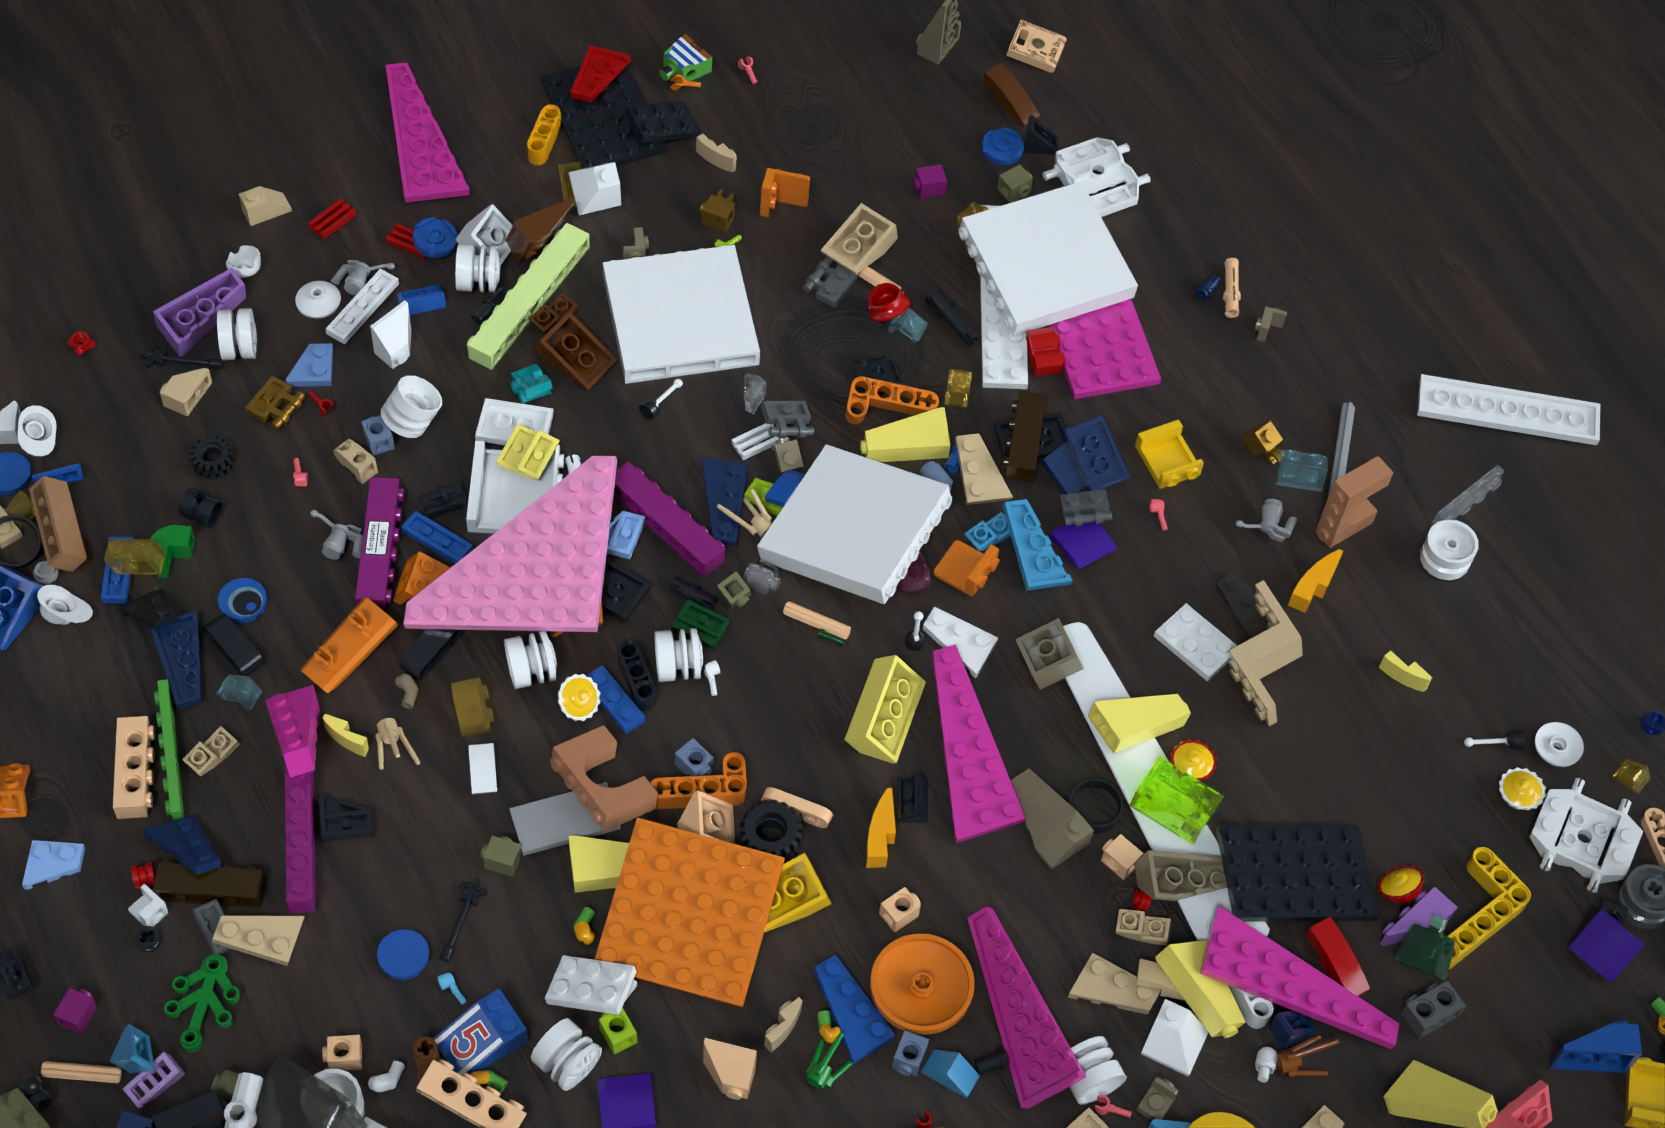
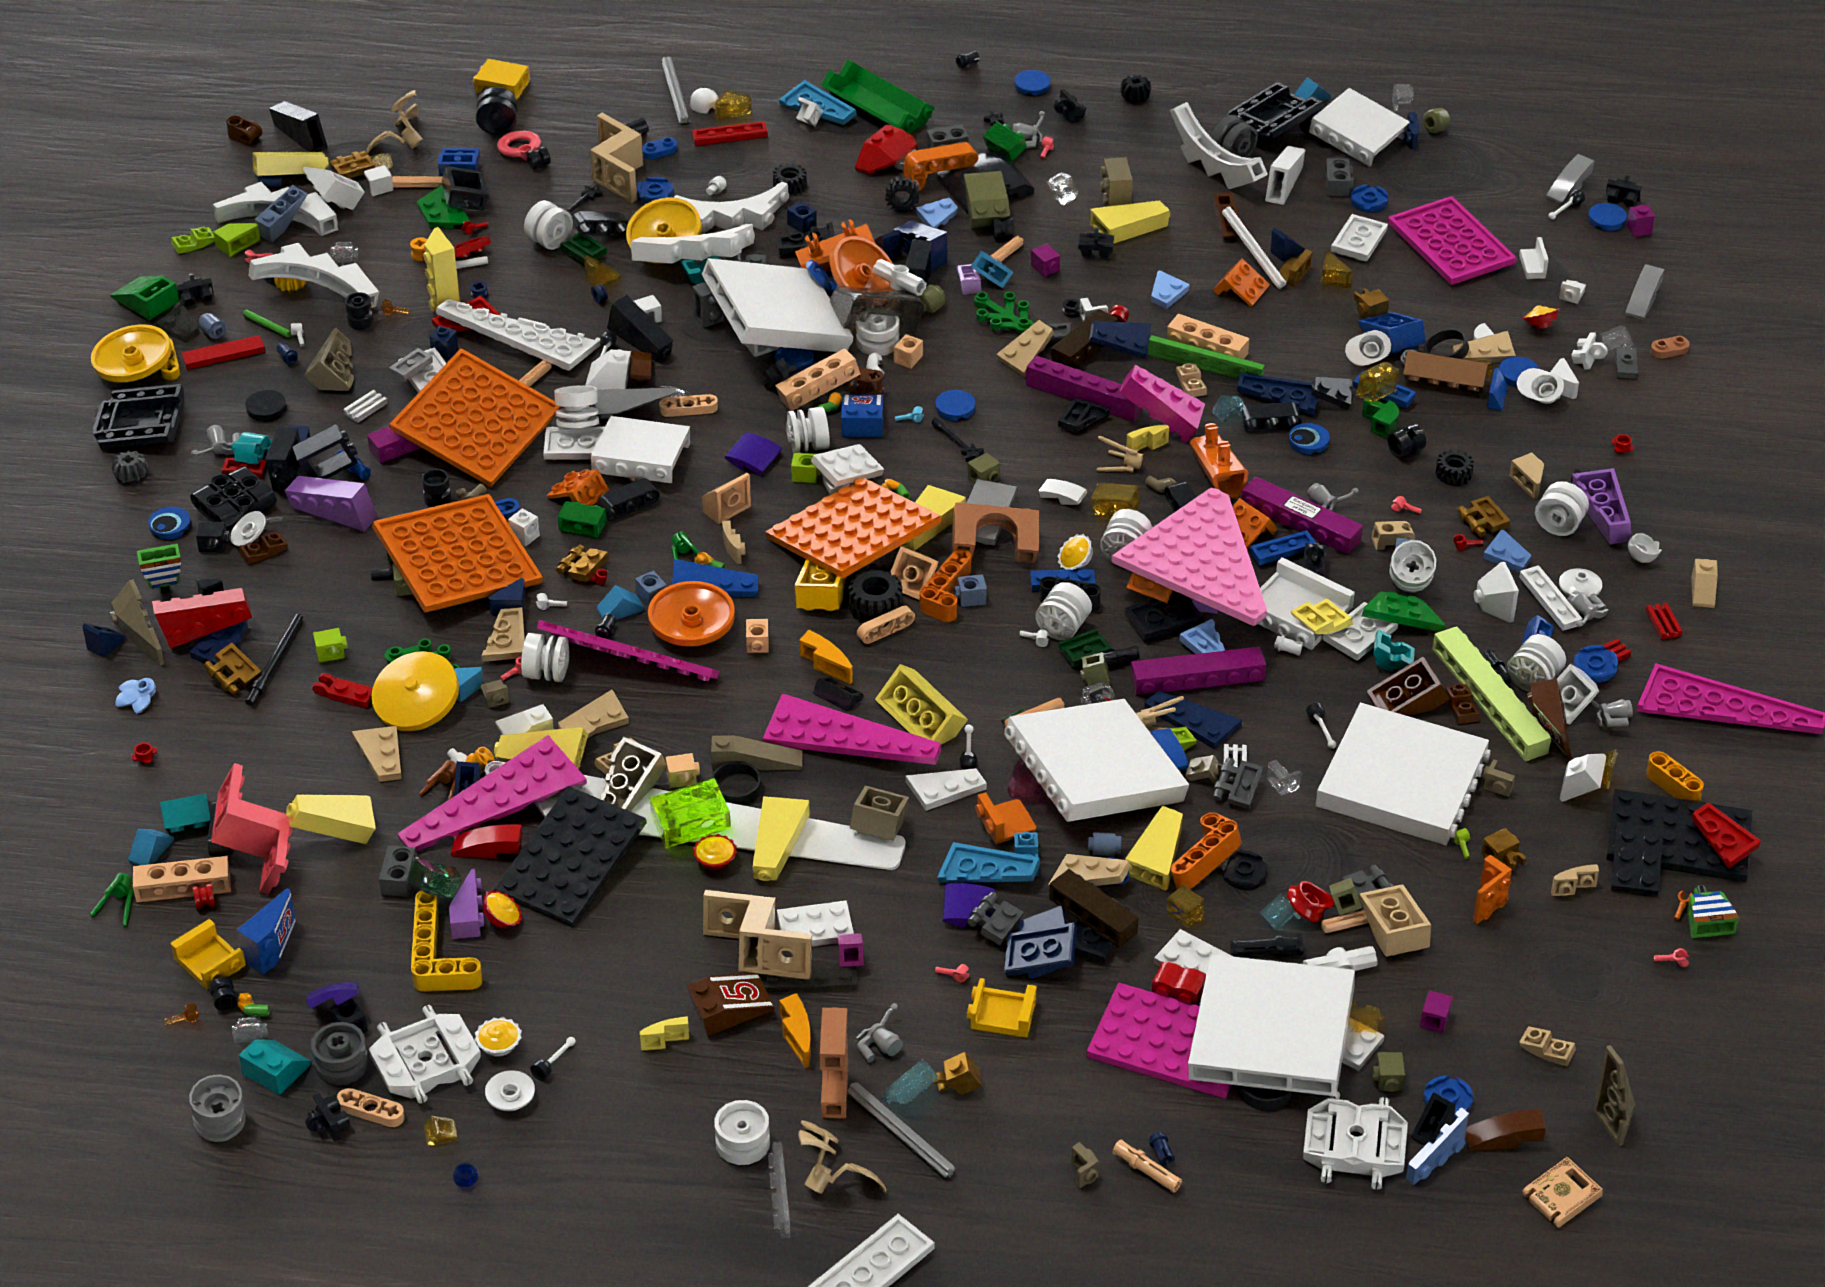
camera: 130 degrees right, 15 degrees down
(467, 402) = (1403, 610): none -> green wing
(482, 199) = (1615, 713): none -> light grey piece
(865, 280) = (1345, 896): none -> olive brick
(903, 107) = (1544, 1046): none -> tan slope
(931, 261) = (1340, 958): none -> white piece
(1066, 120) = (1433, 1155): none -> medium blue wing
(1209, 589) = (850, 950): none -> magenta brick
(1256, 1038) = (482, 756): none -> light orange wheel
(1336, 644) = (728, 1000): none -> reddish brown slope
(1445, 454) = (820, 1174): none -> tan plant

